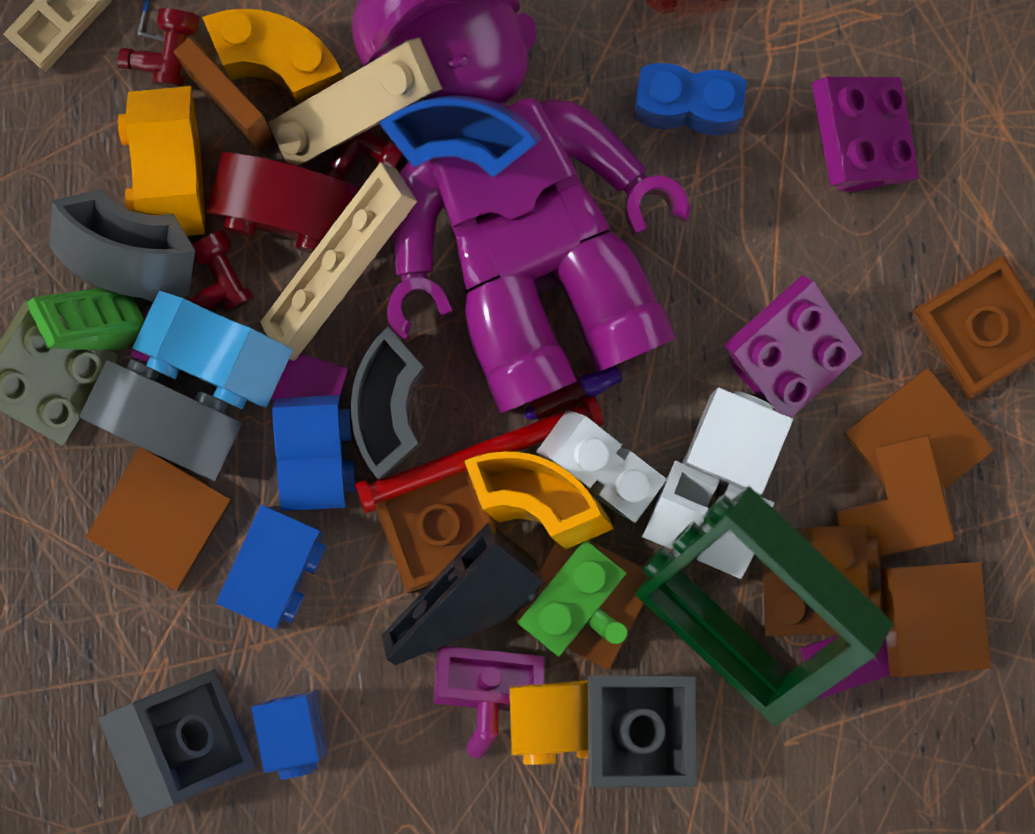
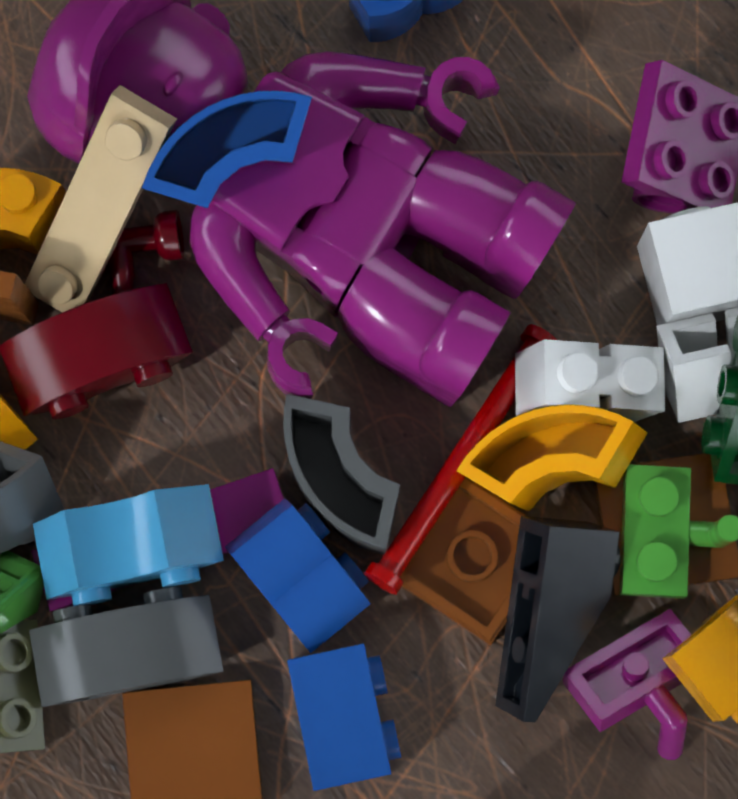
camera: 30 degrees left, 5 degrees down
(228, 288) = (97, 475): dark red piece -> none
(339, 259) = (191, 362): tan plate -> none
(565, 397) = (521, 314): piece -> none

